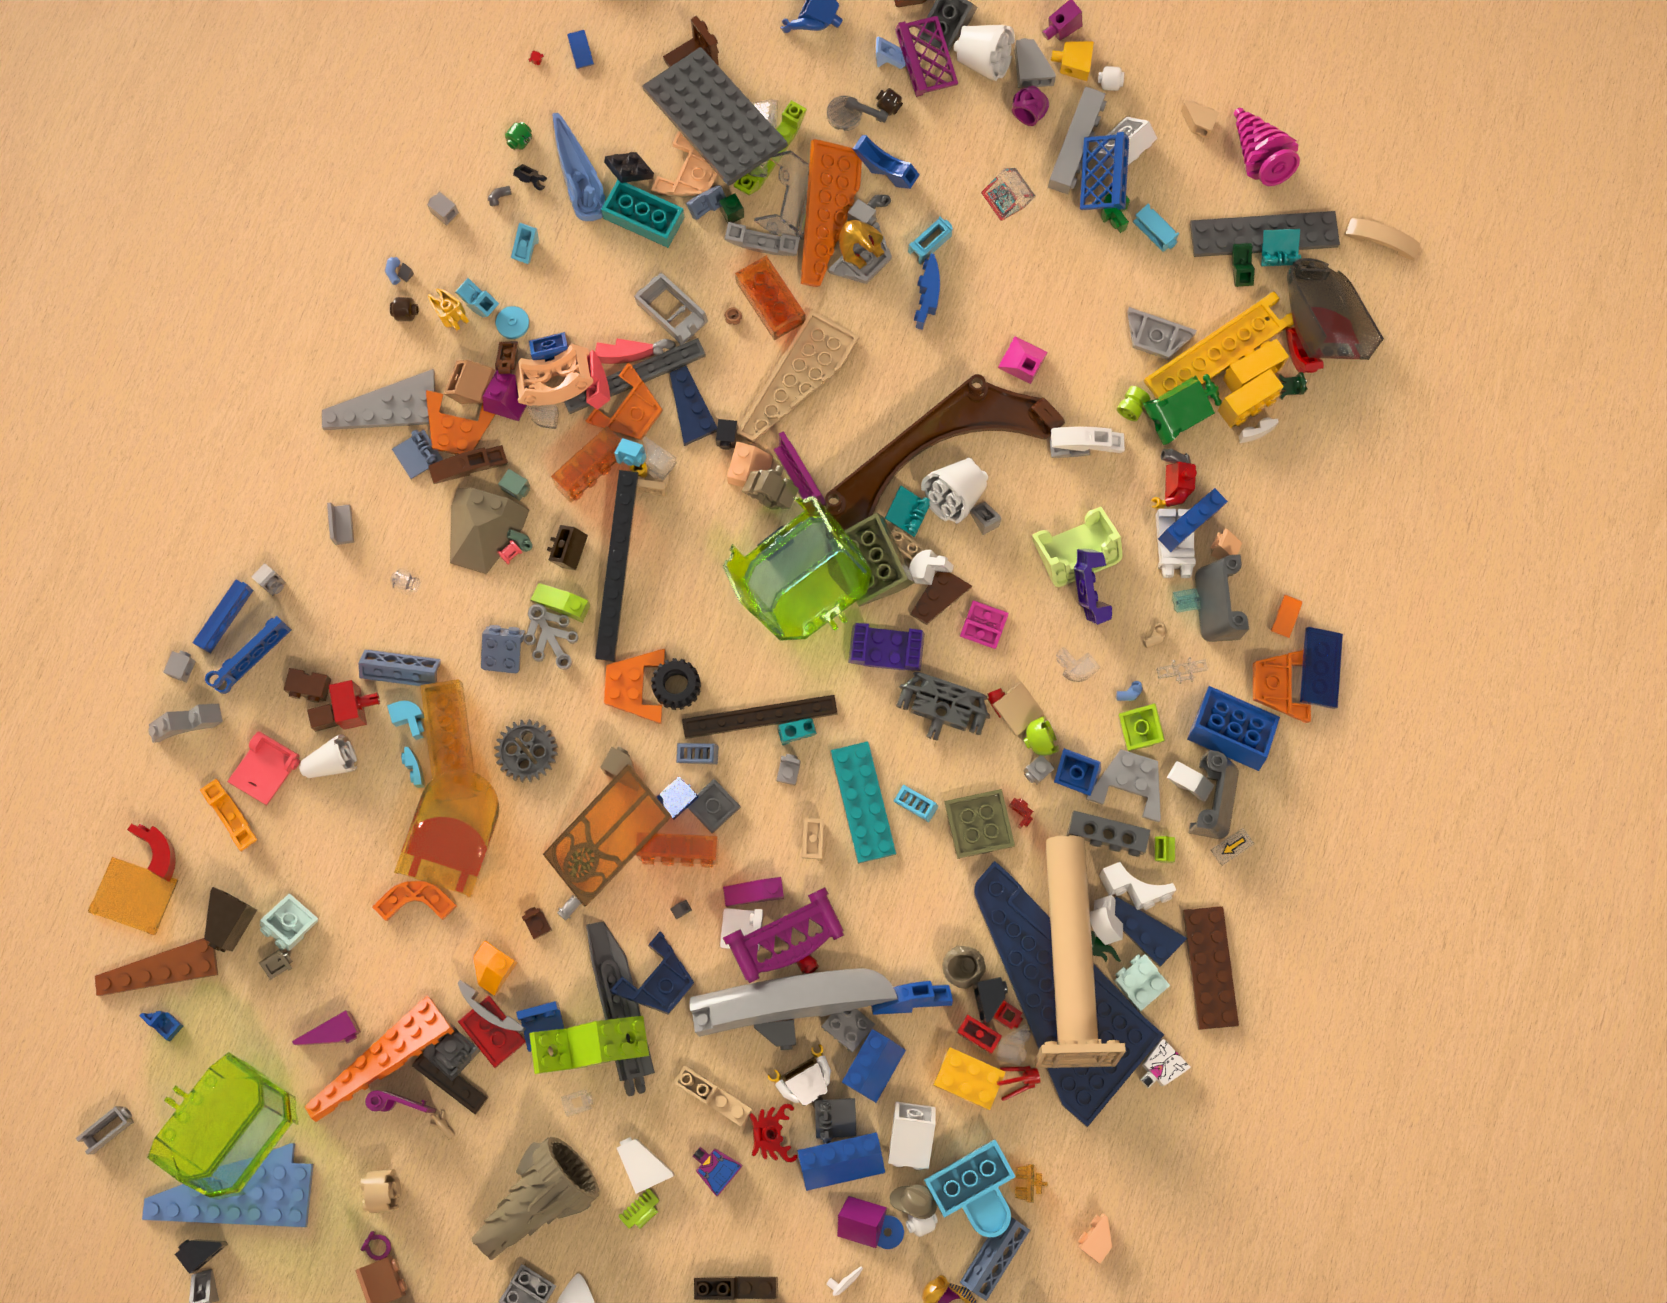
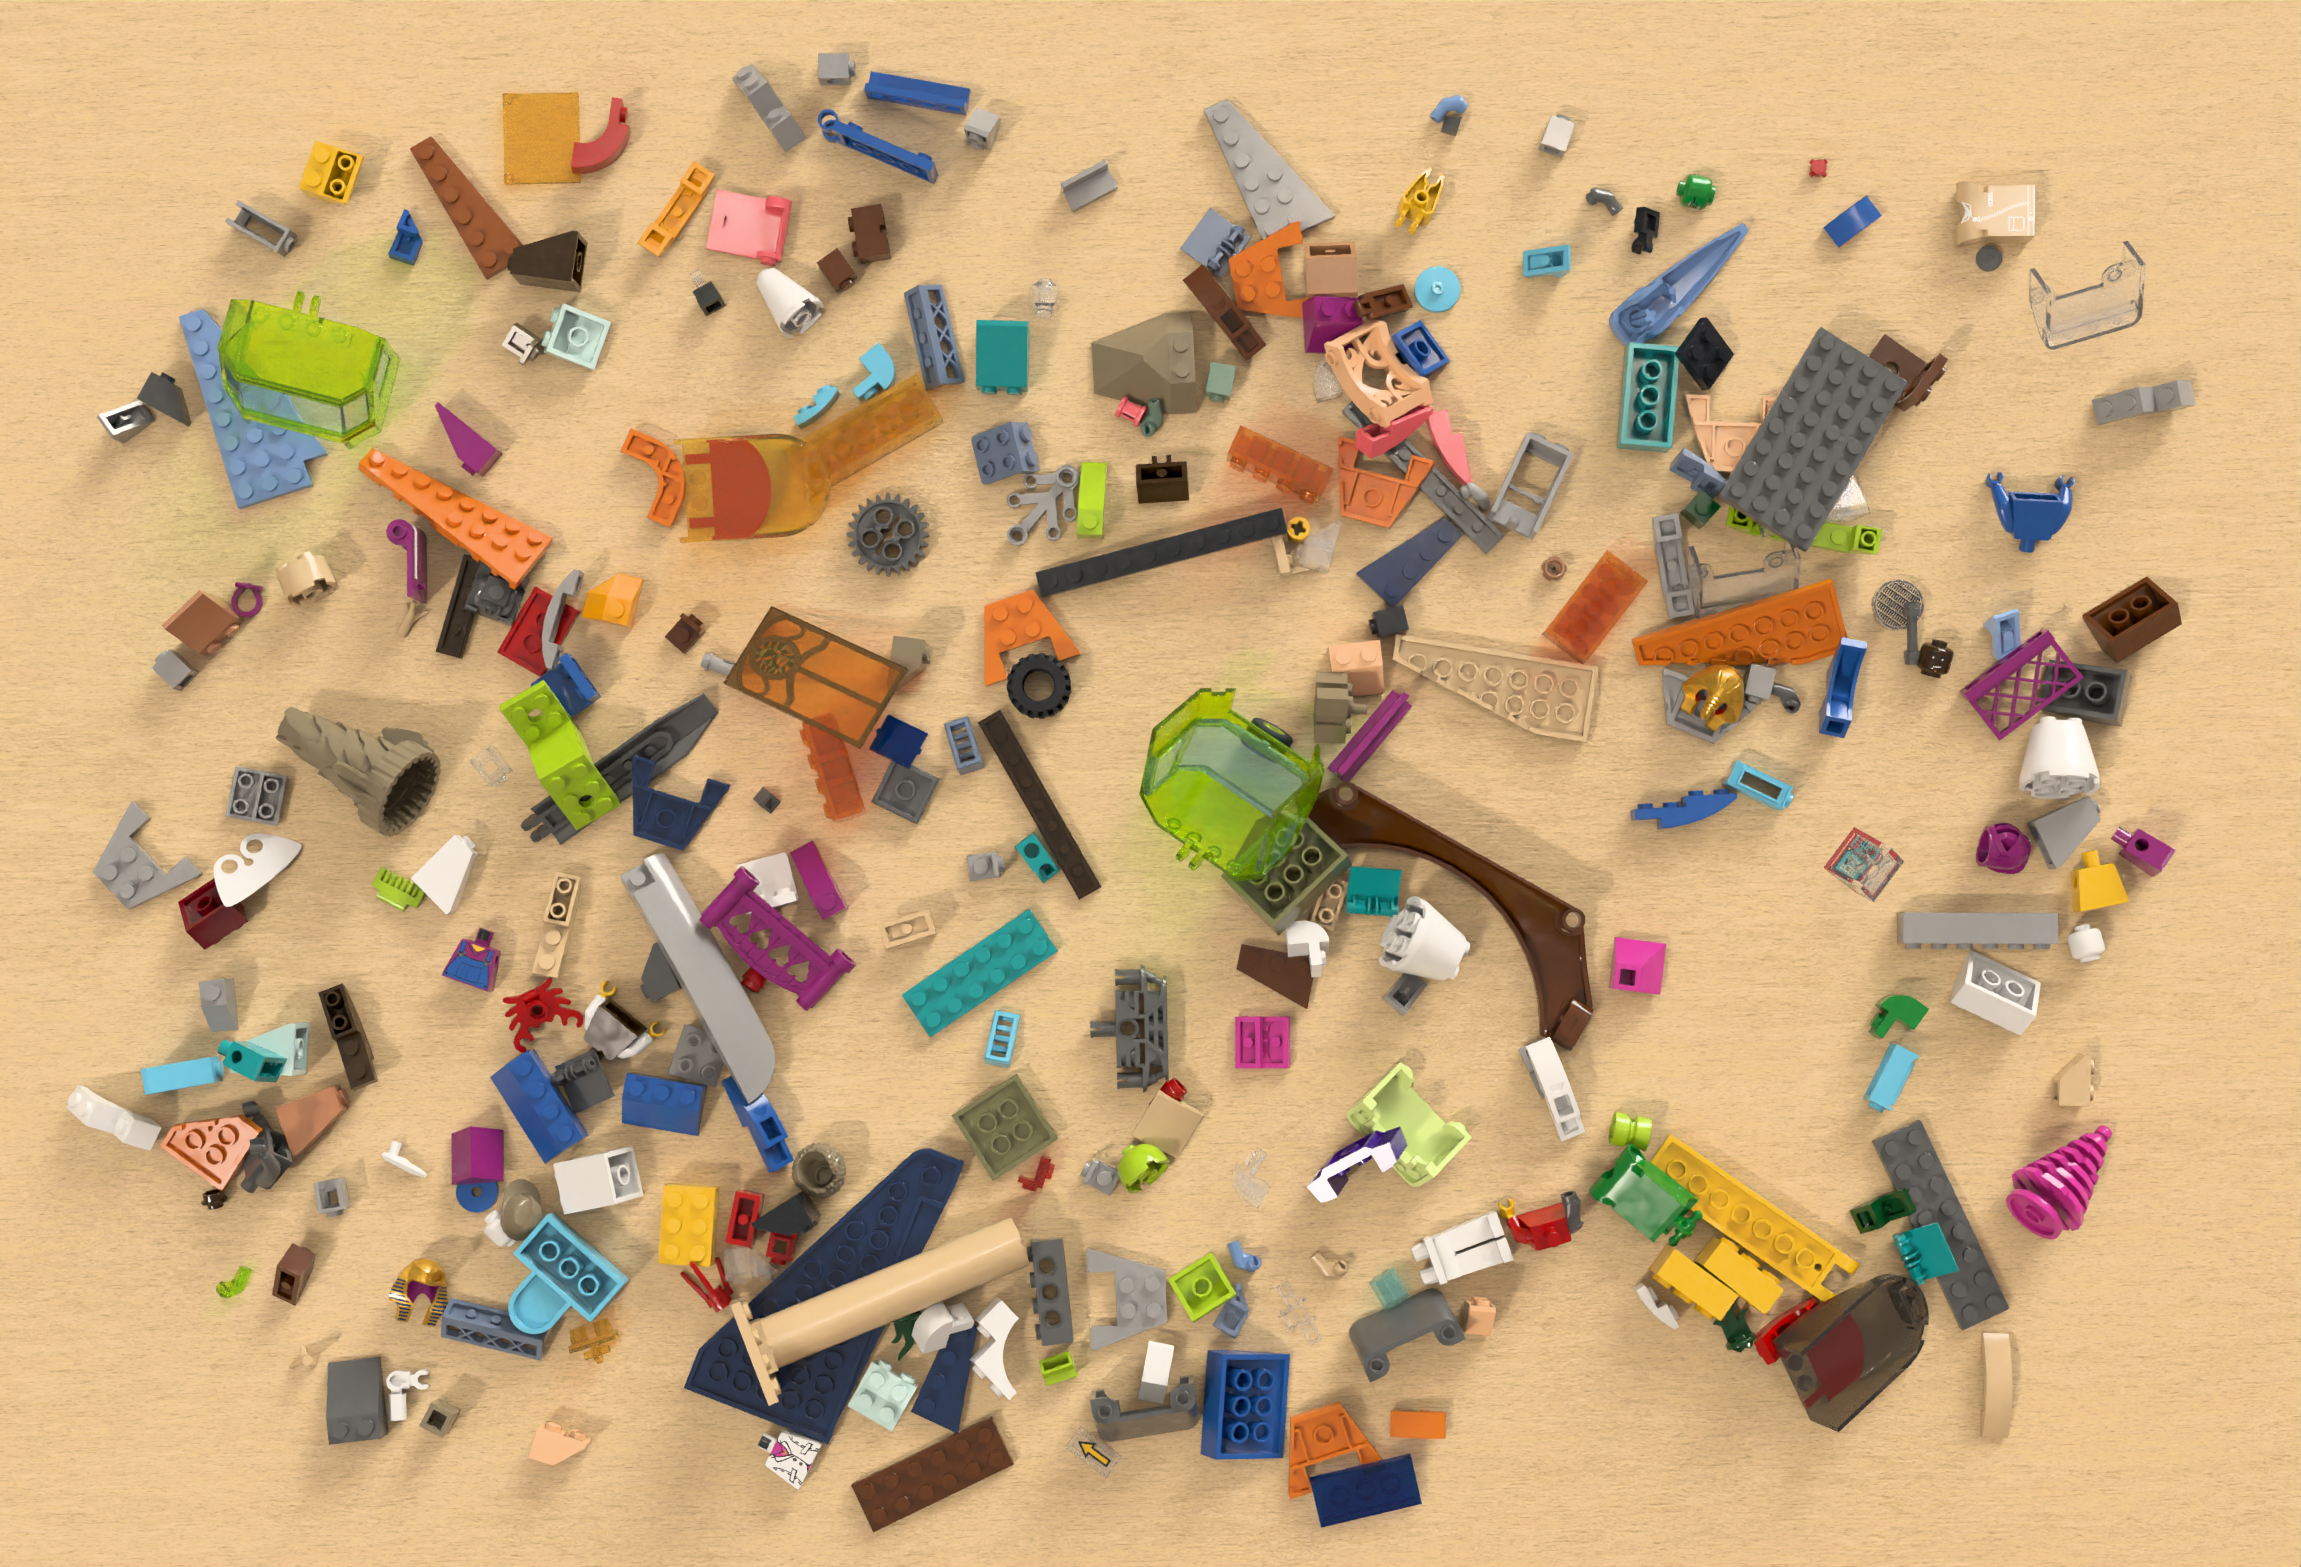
camera: 75 degrees right, 10 degrees up
(88, 1060) = (330, 173): none -> yellow slope
(300, 816) = (706, 294): none -> pearl dark grey piece
(349, 704) = (862, 297): red brick -> none
(404, 309) = (1400, 144): dark brown head -> none
(433, 623) = (1002, 356): none -> teal slope
(478, 301) = (1448, 232): medium azure brick -> none
(630, 453) = (1308, 512): medium azure brick -> none
(886, 648) = (1185, 930): dark purple plate -> none
(1077, 772) = (1112, 1226): blue slope -> none
(1119, 169) = (1950, 1000): blue fence -> none
(1157, 334) = (1739, 1129): light grey wing -> none
(1168, 714) = (1233, 1314): none -> sand blue slope
(1192, 519) = (1496, 1262): blue arch -> none

